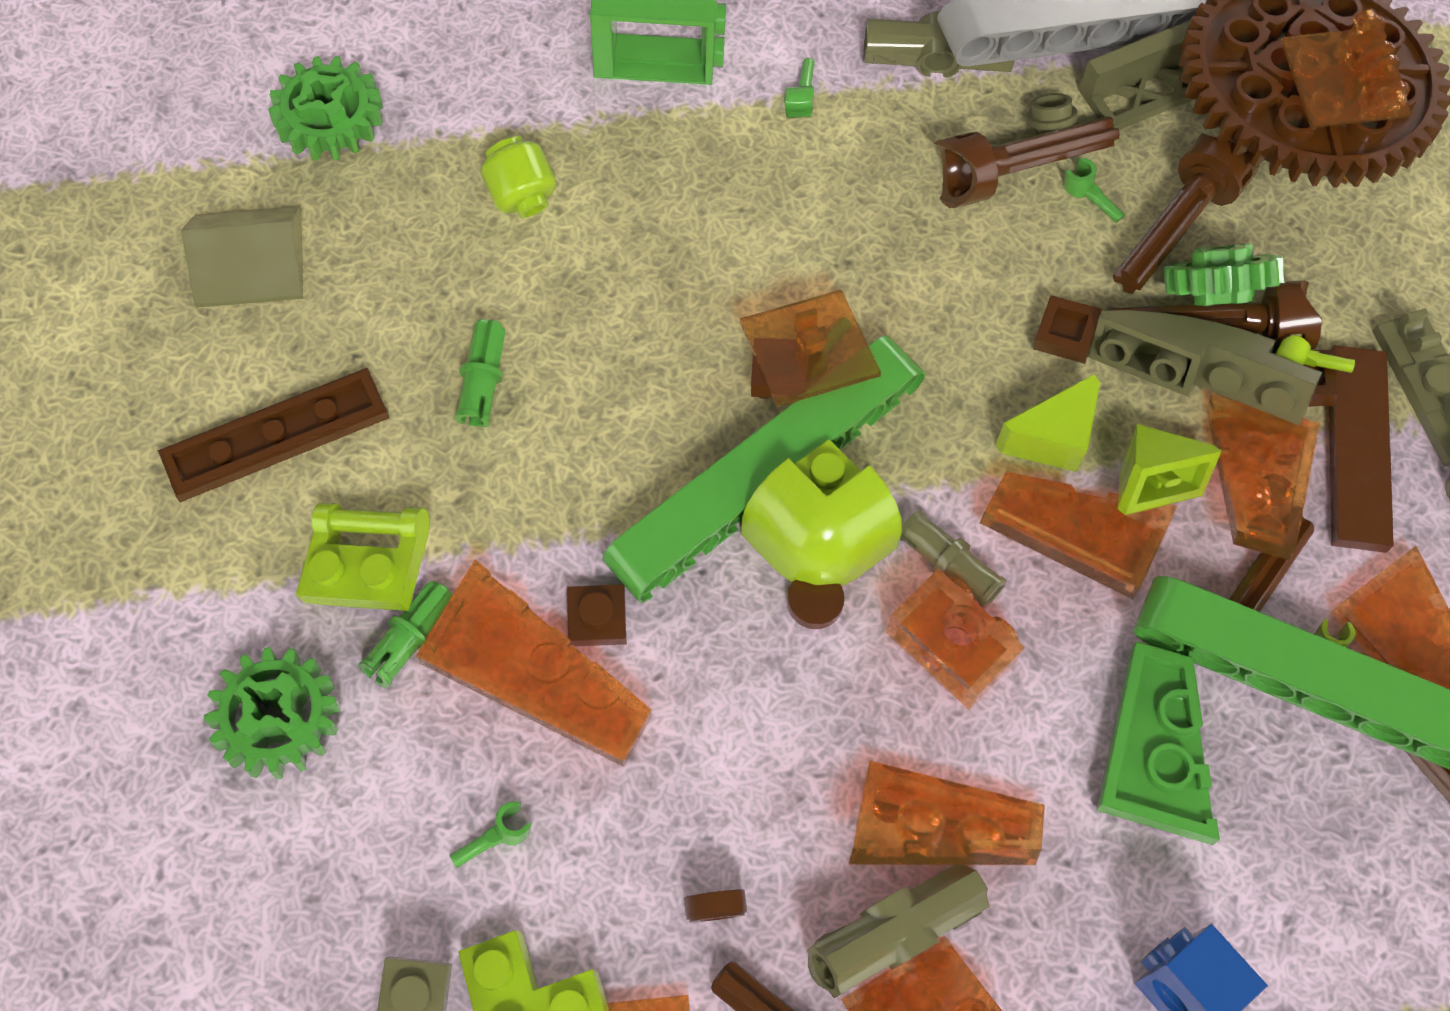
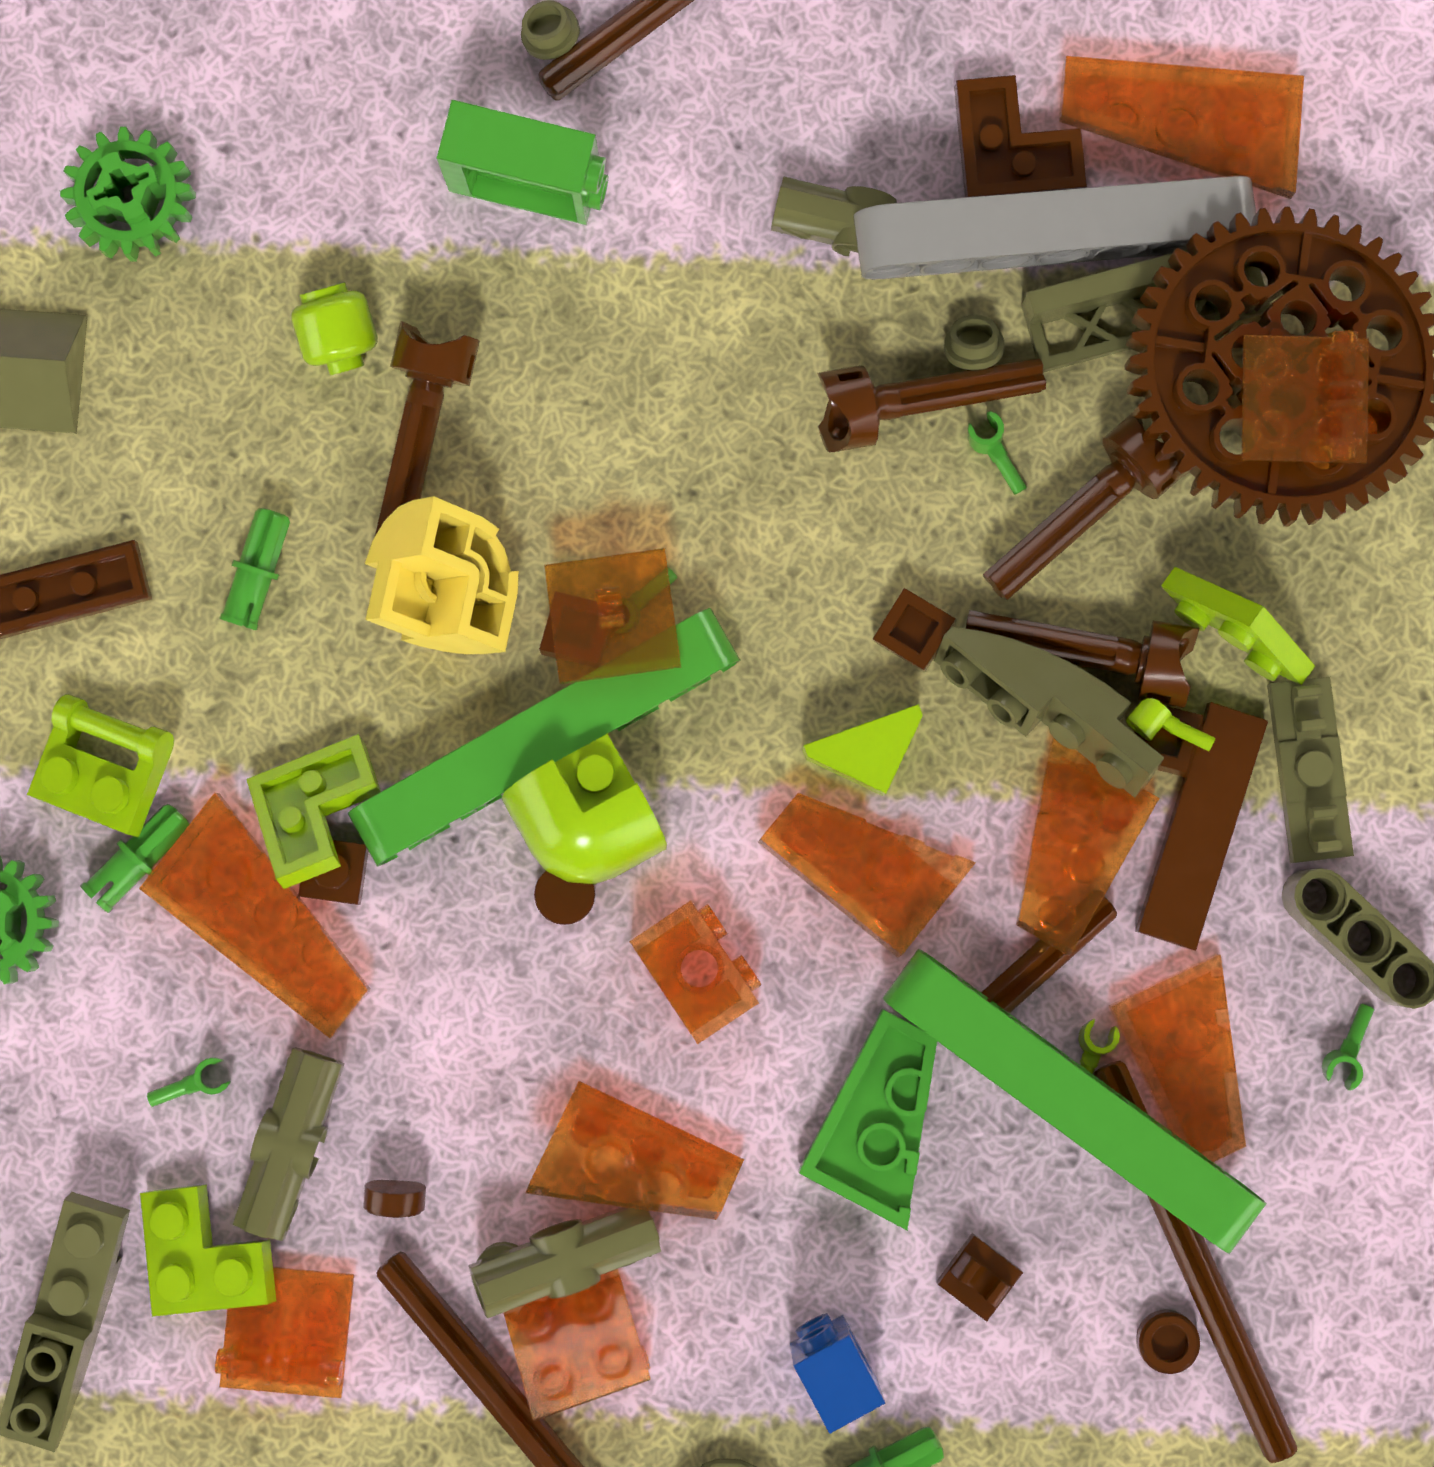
camera: 15 degrees right, 20 degrees up
(556, 555) = (296, 799): none -> lime plate
(600, 873) = (287, 1144): none -> olive piece
(607, 190) = (431, 369): none -> reddish brown piece
(652, 344) = (442, 579): none -> light yellow brick
(799, 99) = (682, 269): bright green hand -> none
(952, 557) = (716, 878): olive pin -> none
(1163, 470) = (965, 824): lime slope -> none
(1224, 274) = (1101, 606): bright green gear -> none
(1297, 878) = (979, 1277): none -> reddish brown tile
(1353, 265) = (1240, 623): none -> lime plate

